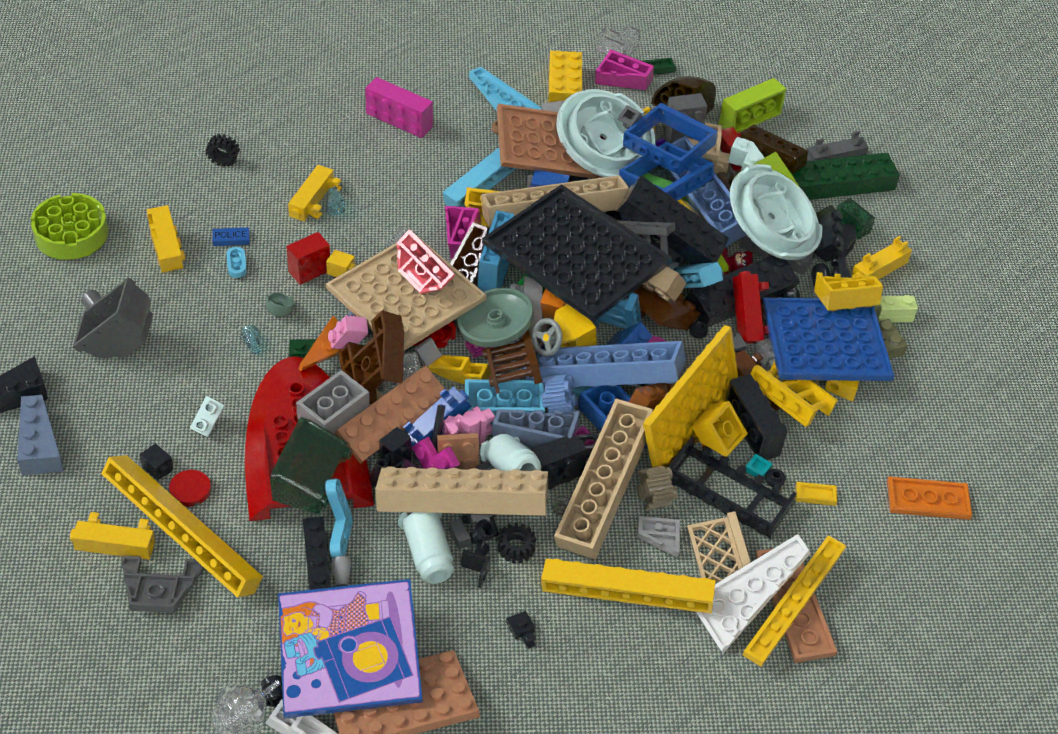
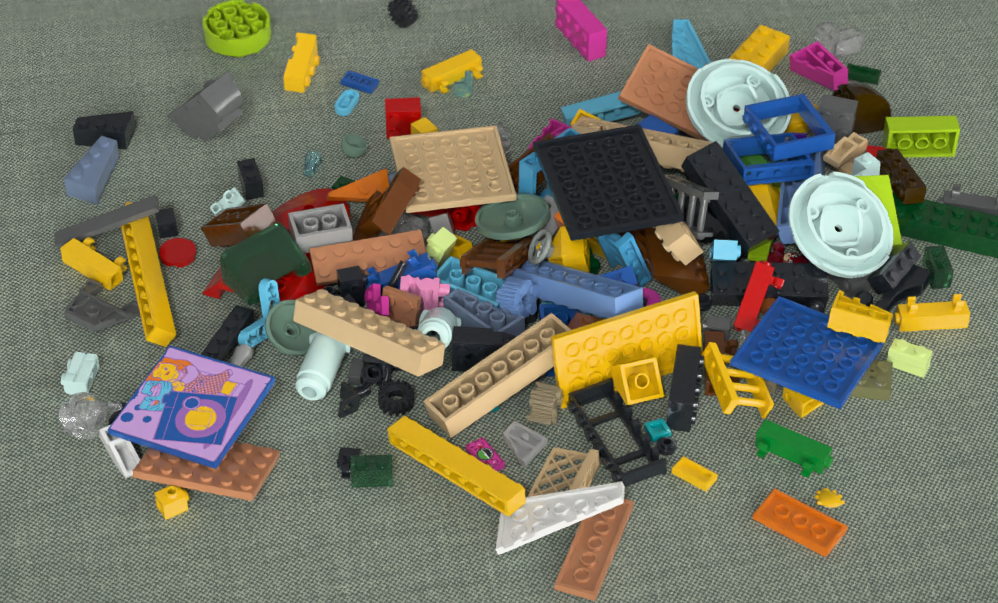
camera: 35 degrees right, 5 degrees down
(101, 488) = (108, 221): none -> dark grey tile
(195, 664) = (80, 373): none -> light aqua brick
(206, 379) = (250, 179): none -> black brick
(244, 434) = (237, 224): none -> reddish brown brick
(348, 330) = (379, 179): bright pink brick -> none
(381, 526) = (277, 324): none -> sand green dish
(421, 264) = (476, 147): coral wedge -> none
(449, 371) = (440, 245): none -> yellowish green brick
(556, 628) = (371, 471): none -> clear green brick
(629, 116) = (761, 94): dark grey brick -> none
(635, 560) = (485, 453): none -> dark pink tile
(794, 601) = (590, 538): yellow plate -> none
(874, 431) = (793, 447): none -> green brick
(933, 465) = (829, 498): none -> yellow piece

